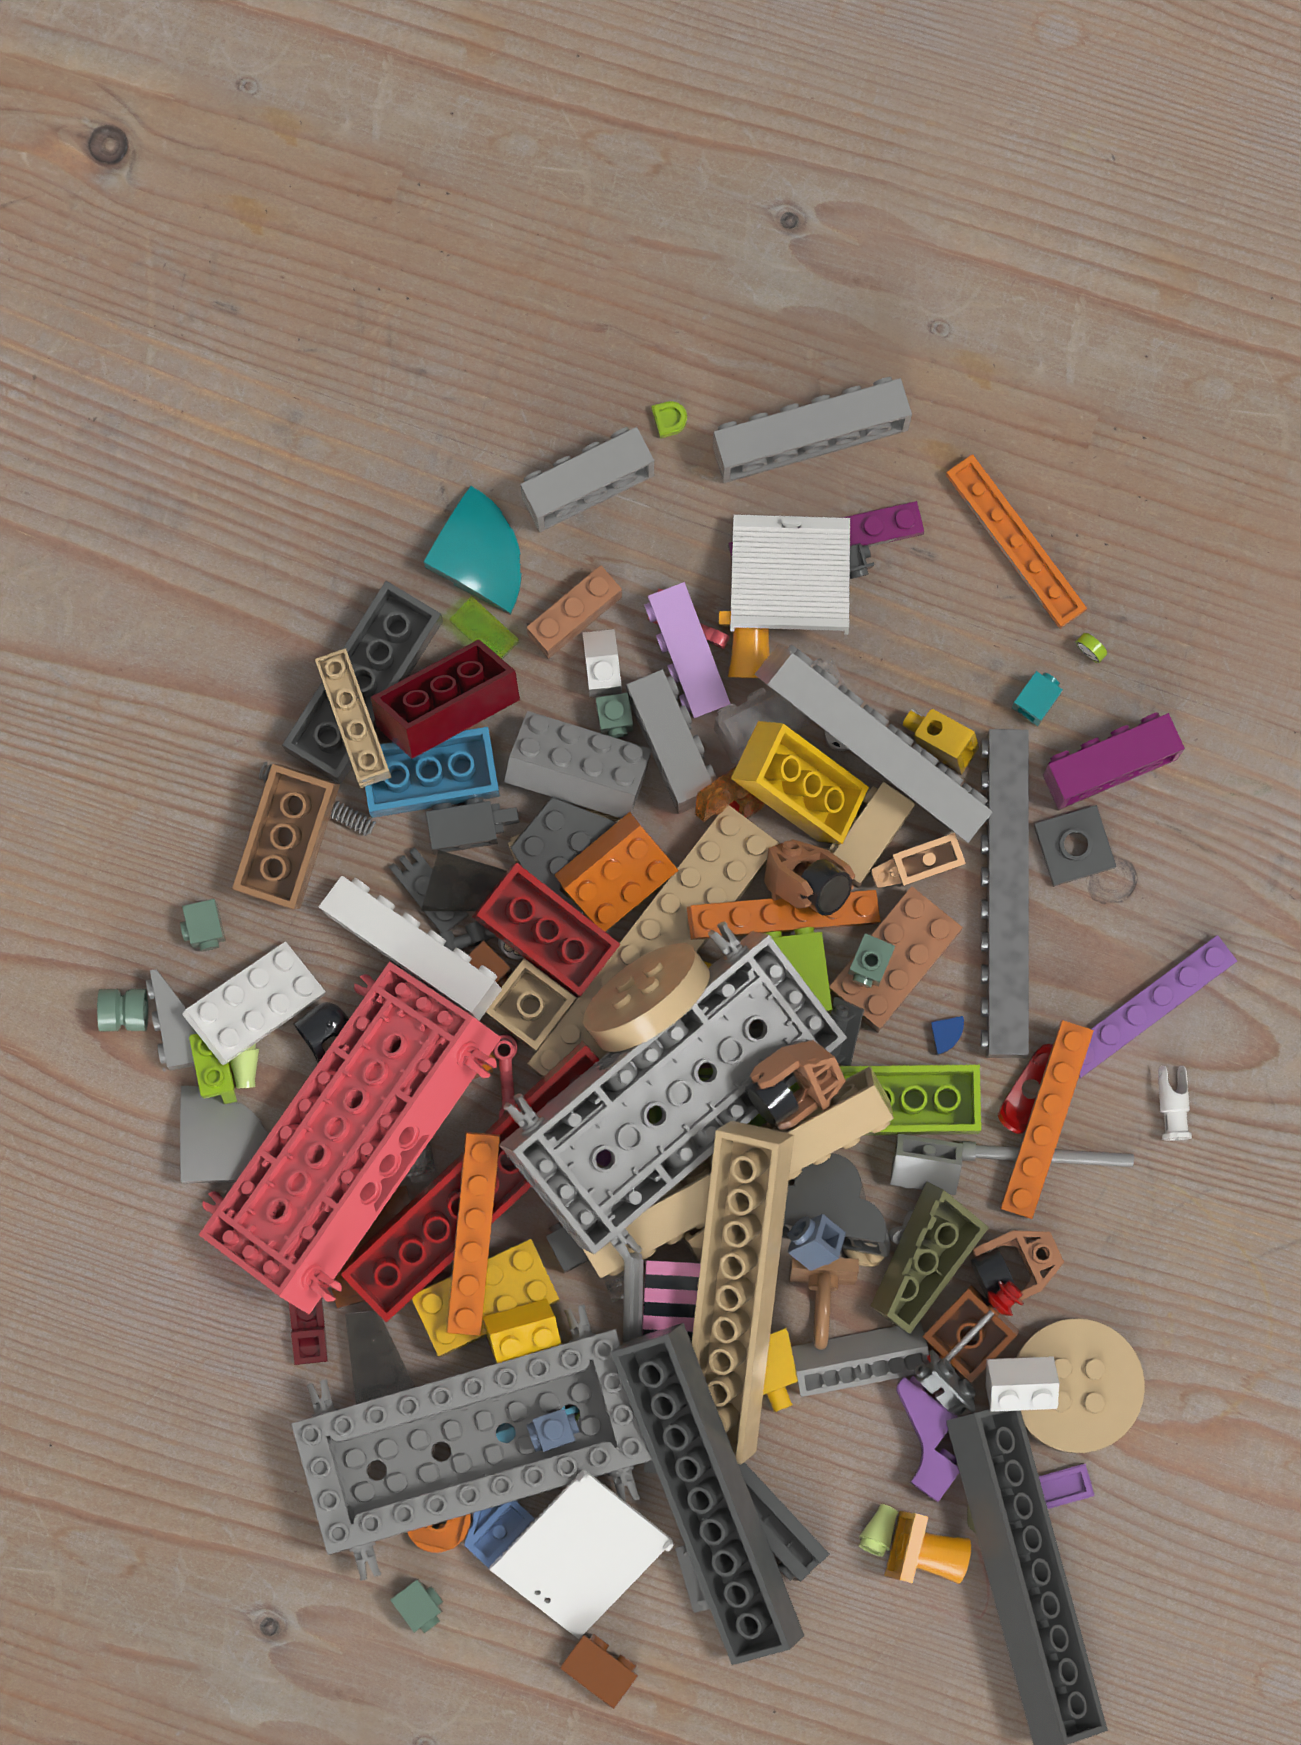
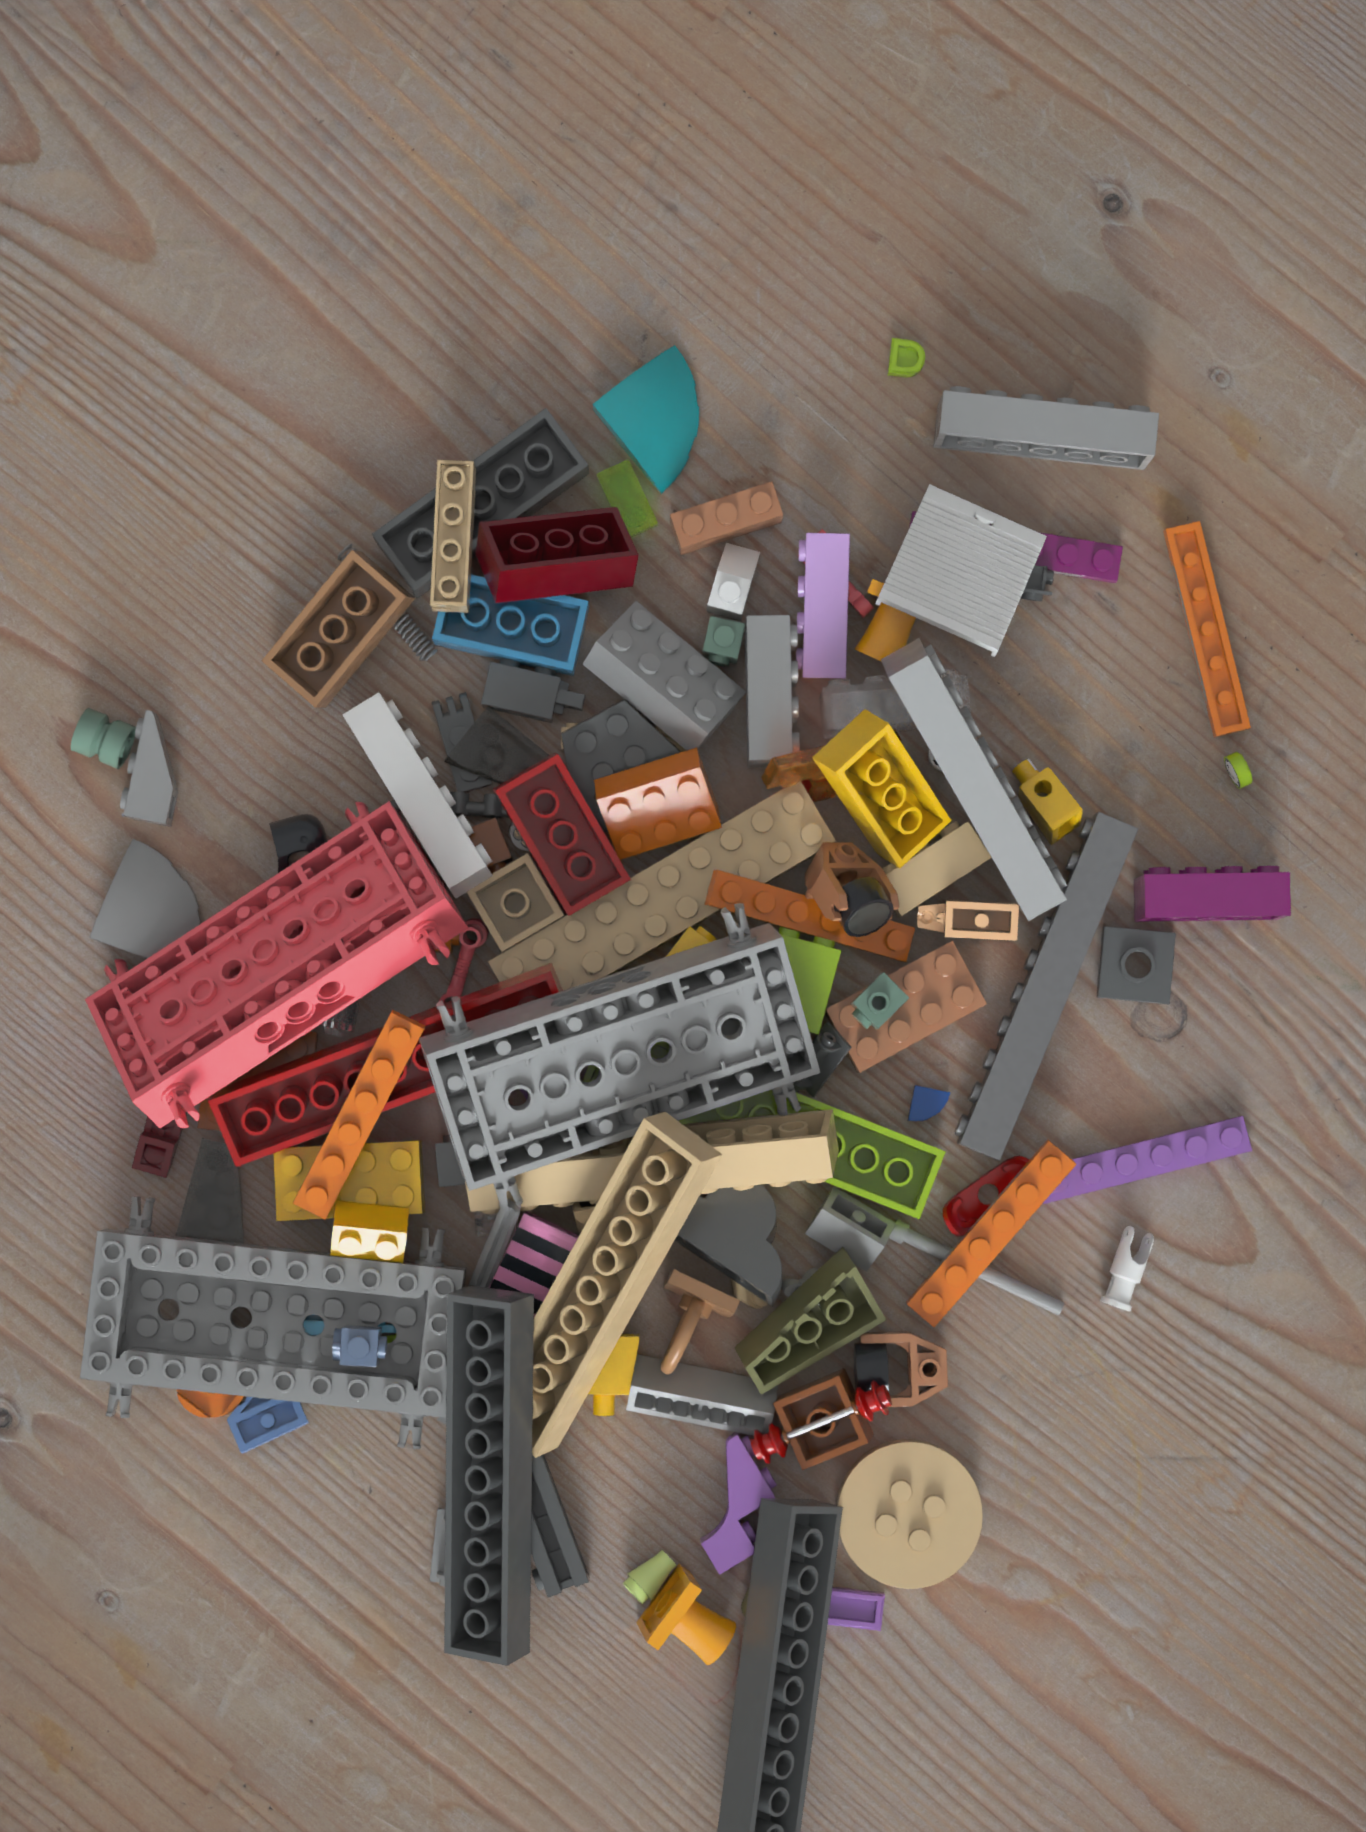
camera: 15 degrees right, 5 degrees up
(203, 925) = (219, 685): sand green brick -> none
(211, 1075) = (170, 833): lime bracket -> none
(245, 1067) = (204, 841): yellowish green cone -> none
(254, 1003) = (237, 786): white plate -> none
(418, 1606) = (156, 1461): sand green brick -> none
(581, 1554) = (338, 1479): white door -> none
(587, 478) = (795, 386): light grey brick -> none
(599, 1670) = (311, 1600): dark orange brick -> none
(646, 997) = (631, 948): tan brick -> none
(815, 1073) = (771, 1095): nougat piece -> none
(815, 1241) = (702, 1267): sand blue brick -> none
(955, 1392) = (783, 1473): dark grey hinge -> none
(1022, 1384) = (853, 1494): white brick -> none
(1037, 697) = (1162, 798): teal brick -> none

